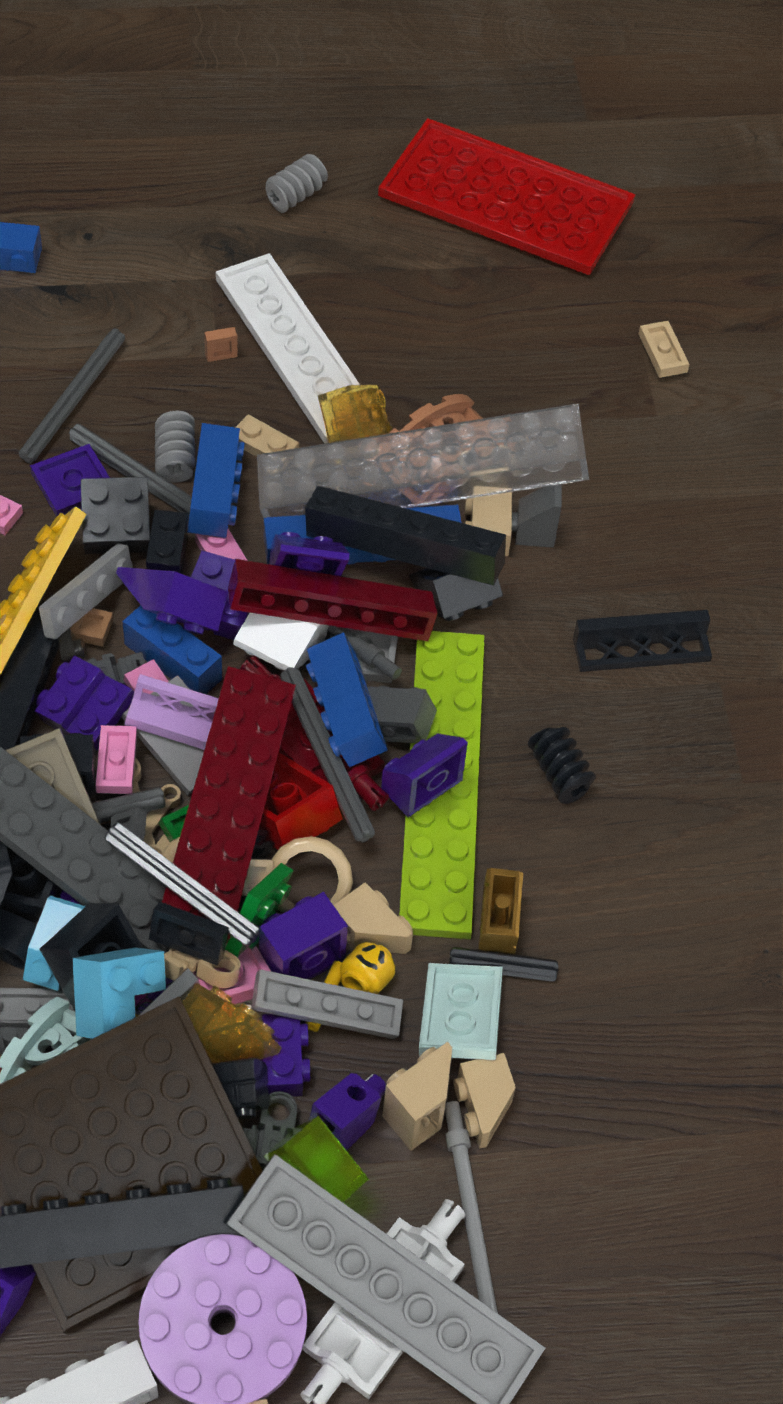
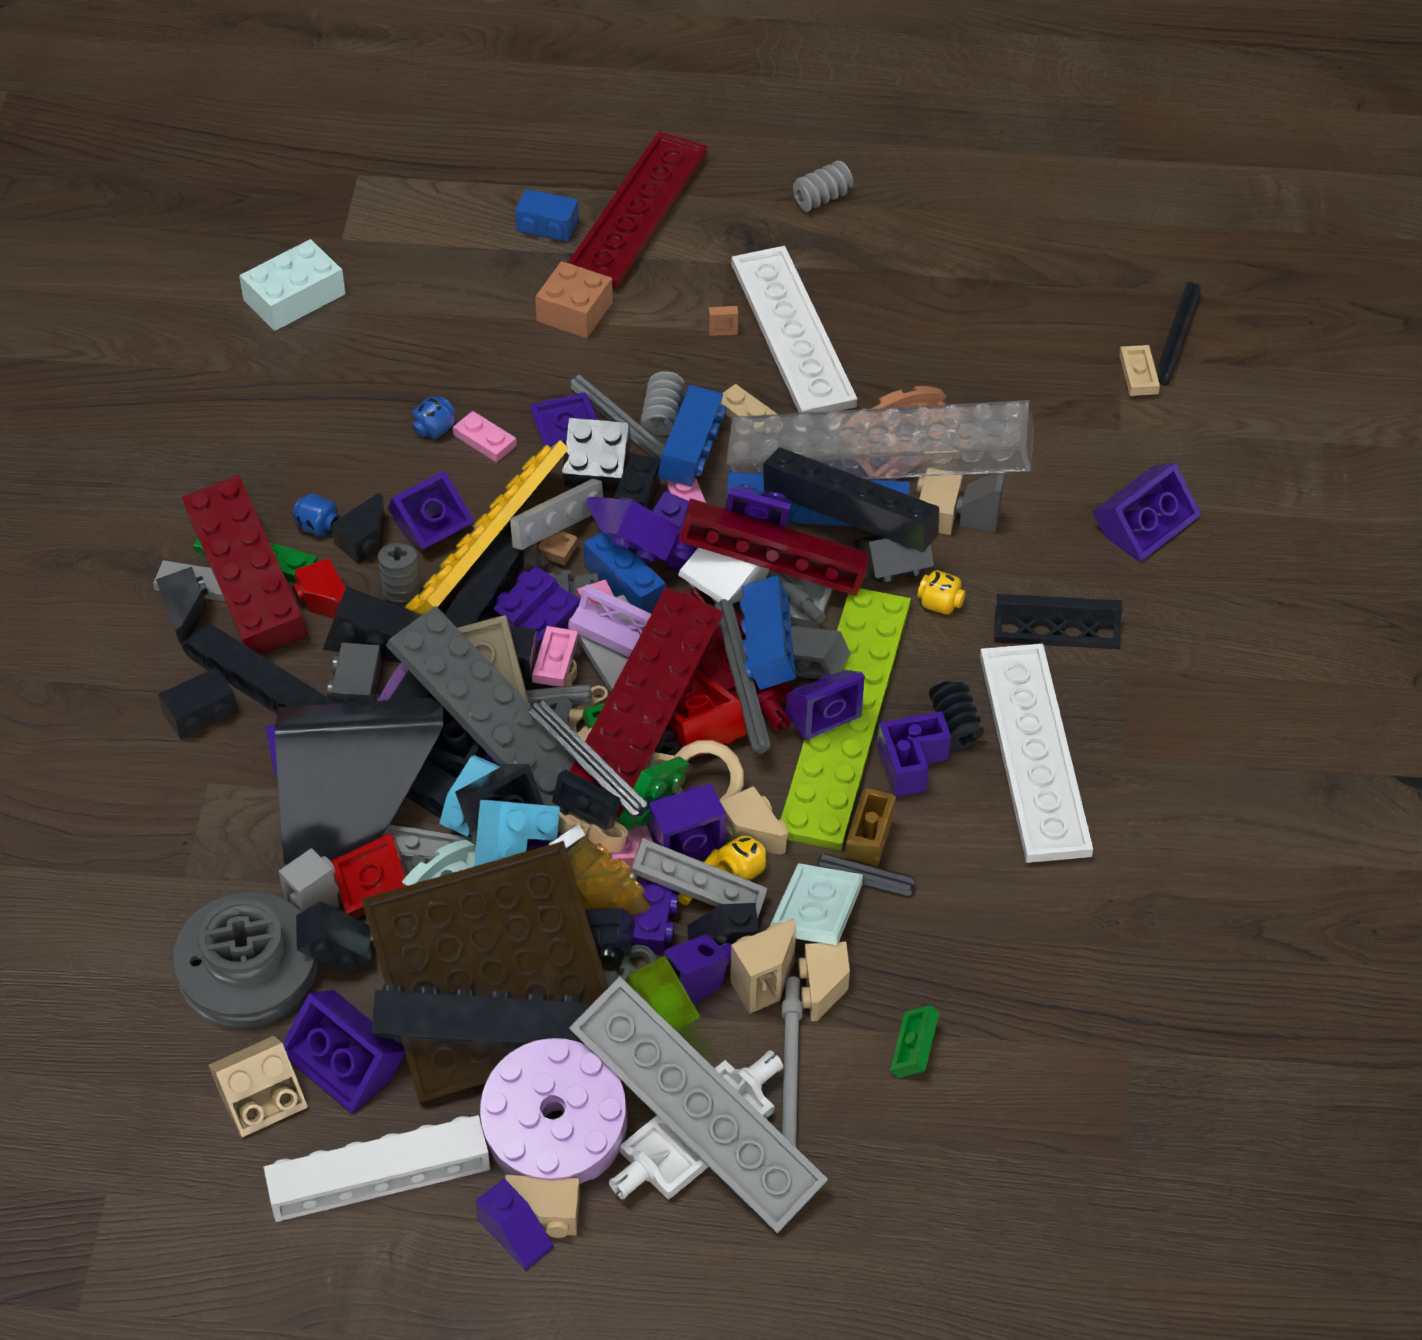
camera: 15 degrees right, 5 degrees down
(55, 338) = (574, 299): none -> nougat brick
(71, 396) = (579, 350): dark grey axle -> none
(102, 231) = (639, 206): none -> dark red plate
(354, 412) = (829, 389): clear yellow slope -> none
(367, 1053) = (726, 923): none -> black slope
(507, 196) = (1022, 218): red plate -> none
(515, 624) = (941, 592): none -> yellow head
(520, 812) = (909, 746): none -> dark purple brick
(599, 1157) = (914, 1041): none -> green plate
(653, 796) = (1035, 754): none -> white plate
(692, 302) = (1177, 332): none -> black axle
(707, 504) = (1148, 511): none -> dark purple slope

